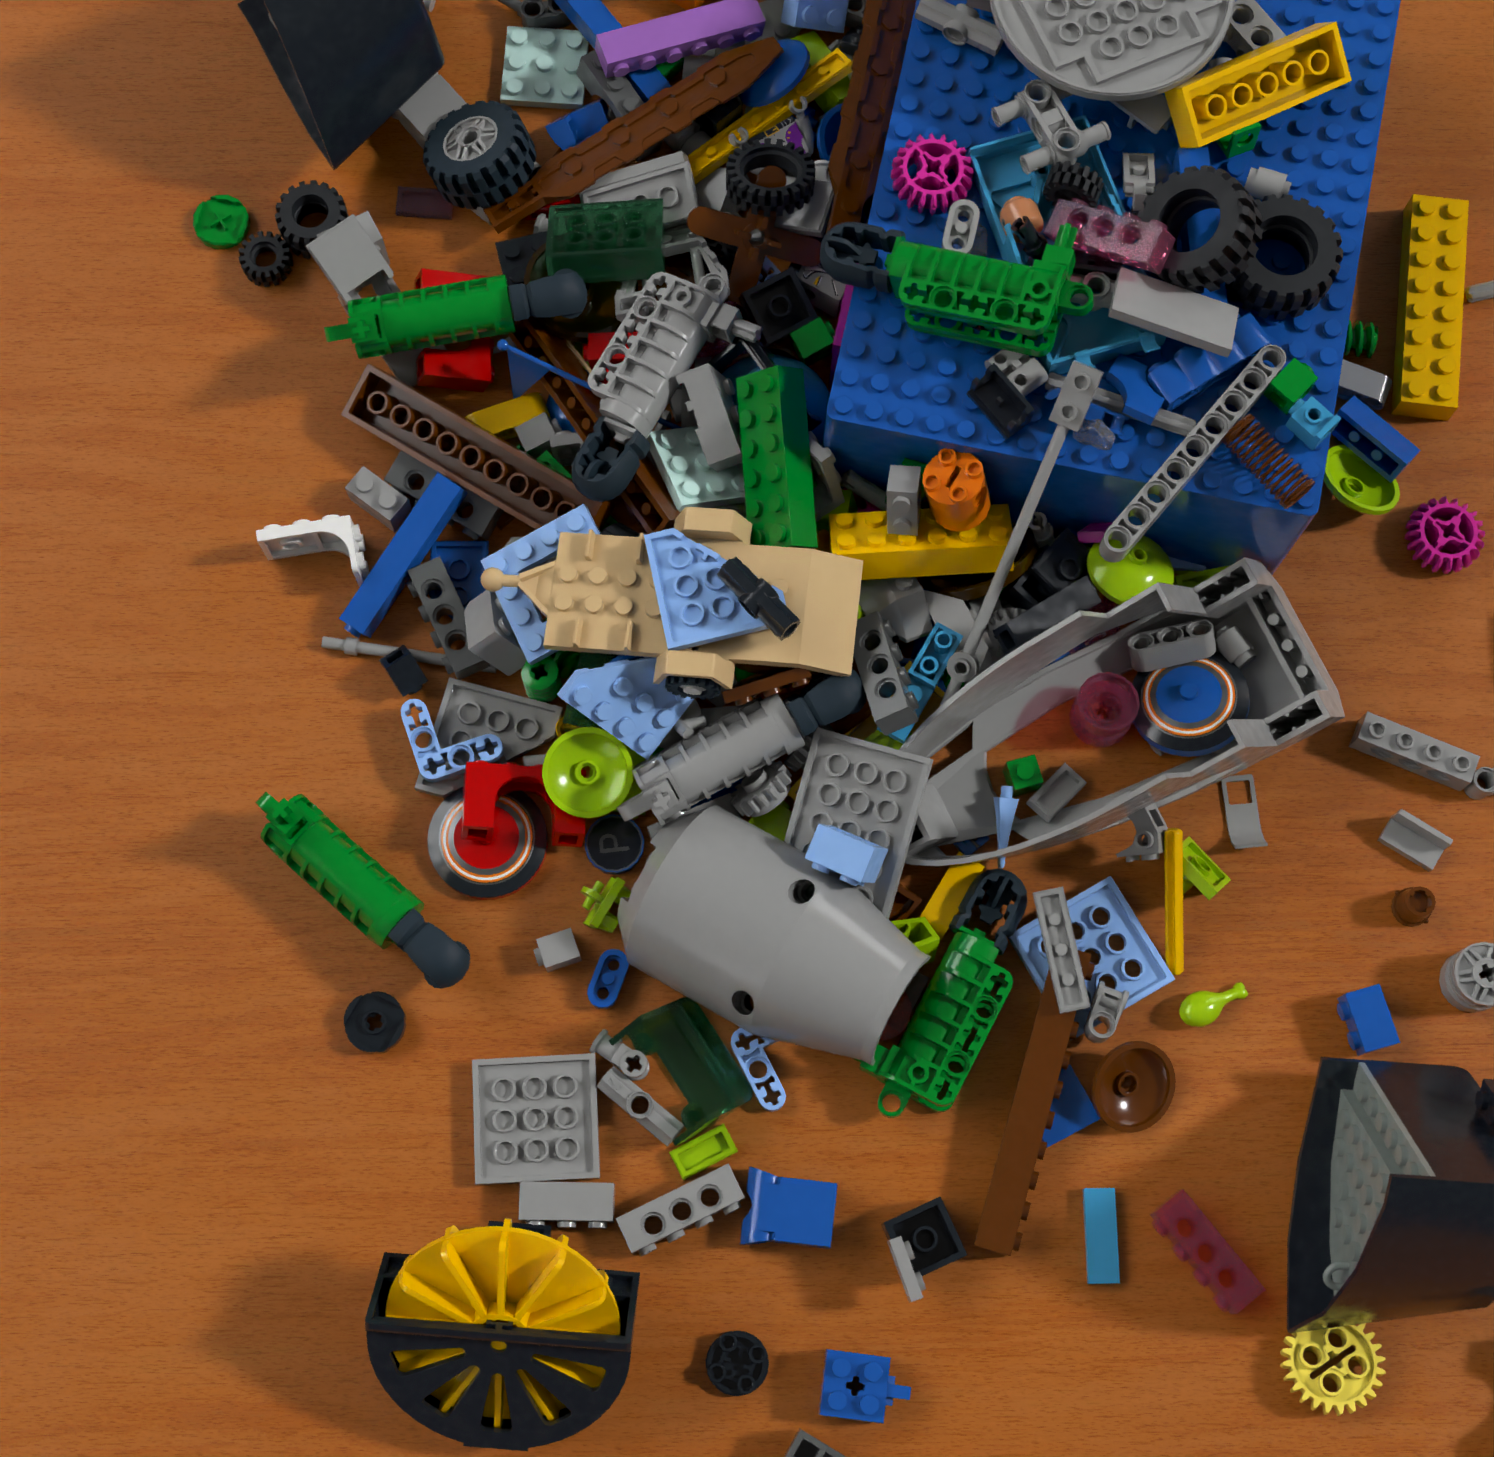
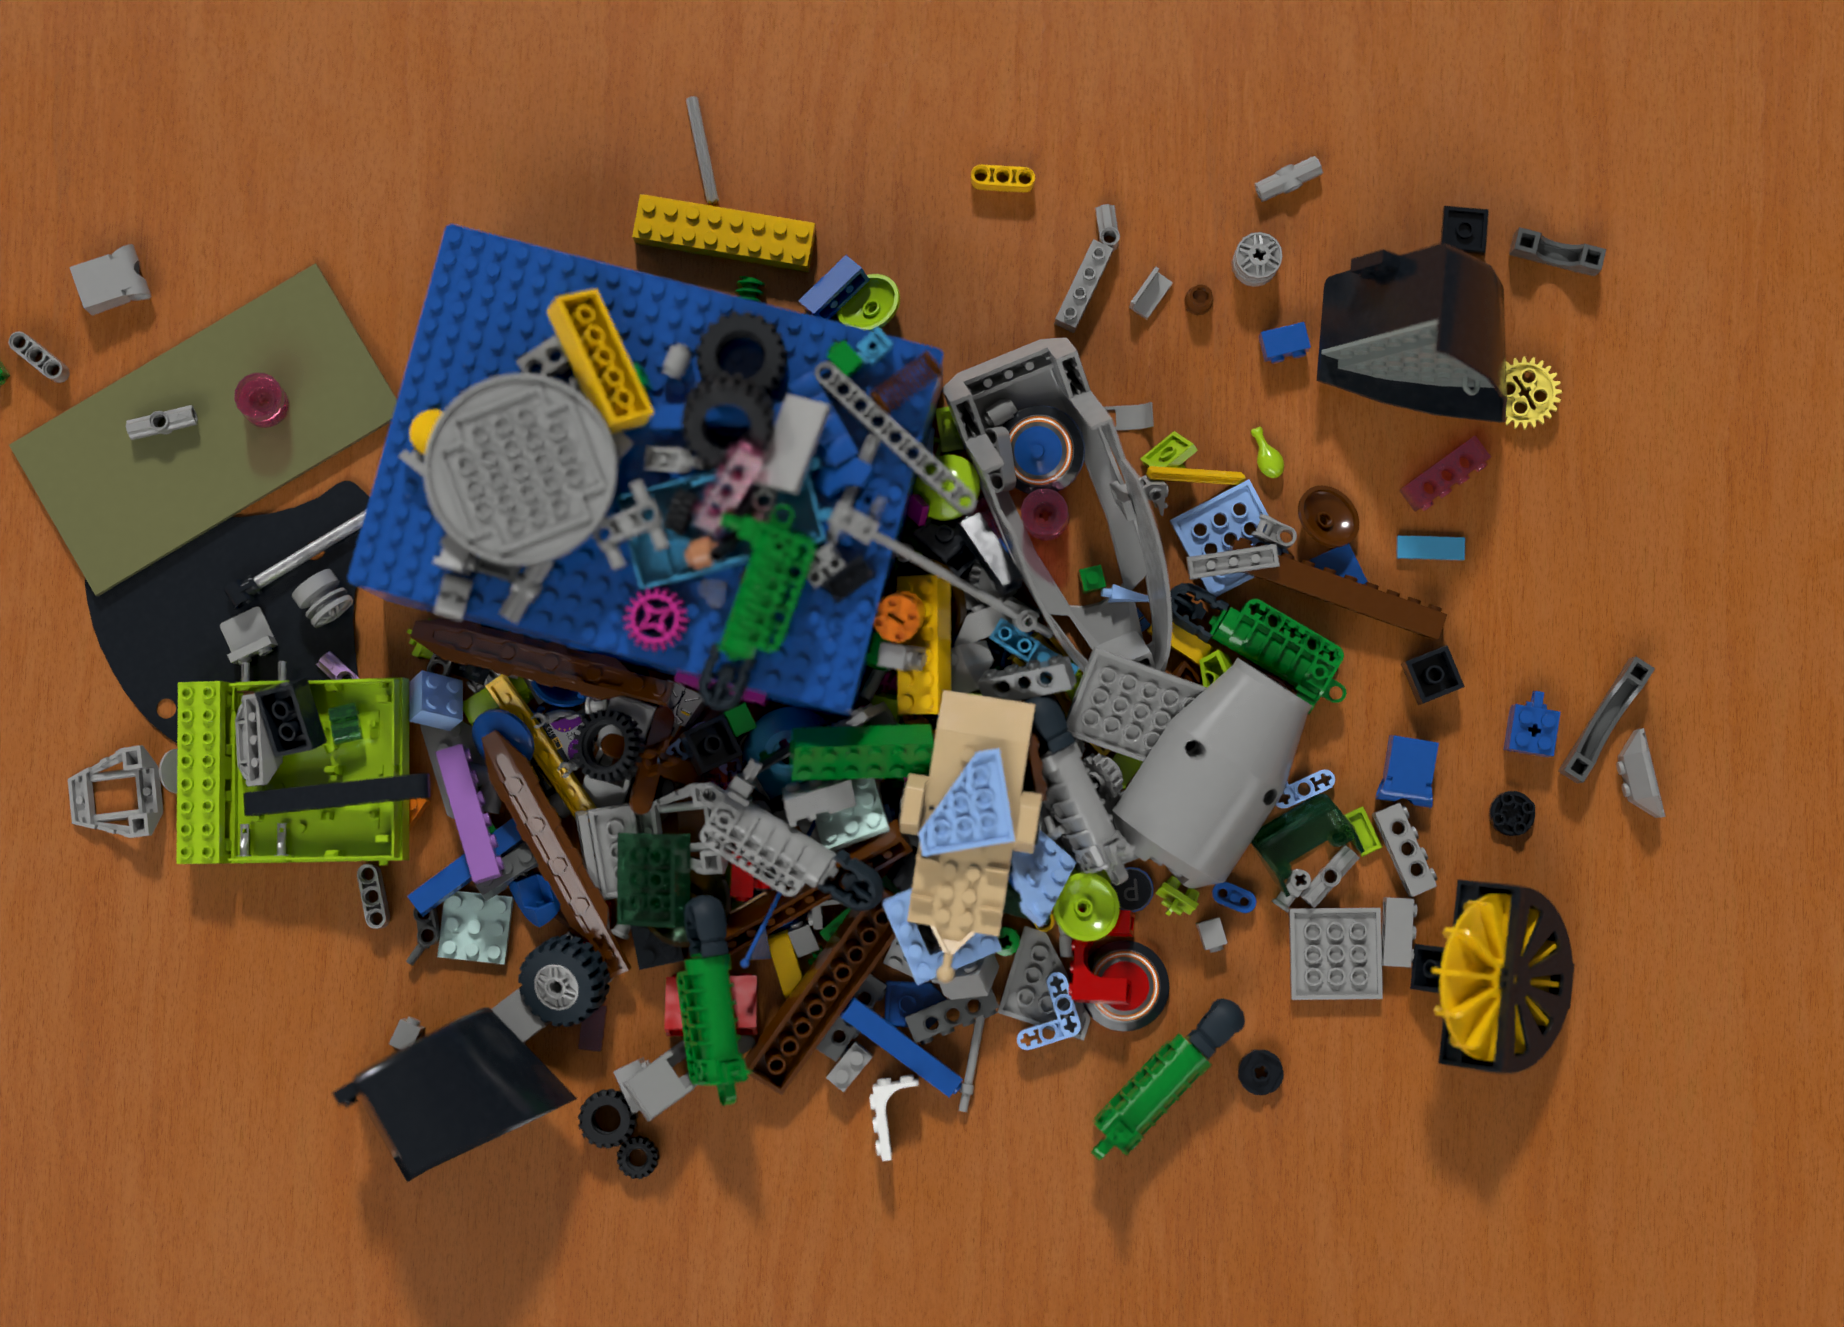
camera: 80 degrees left, 10 degrees up
(221, 222) = (601, 1194): green tile -> none
(403, 671) = (991, 1048): black brick -> none
(758, 598) = (984, 770): black piece -> none
(845, 853) = (1164, 715): light blue brick -> none
(912, 1282) = (1467, 685): light grey plate -> none
(961, 232) = (707, 600): light grey plate -> none
(1056, 792) = (1104, 554): light grey tile -> none
(1365, 384) = (788, 291): light grey beam -> none
(1465, 545) = (920, 249): dark pink gear -> none

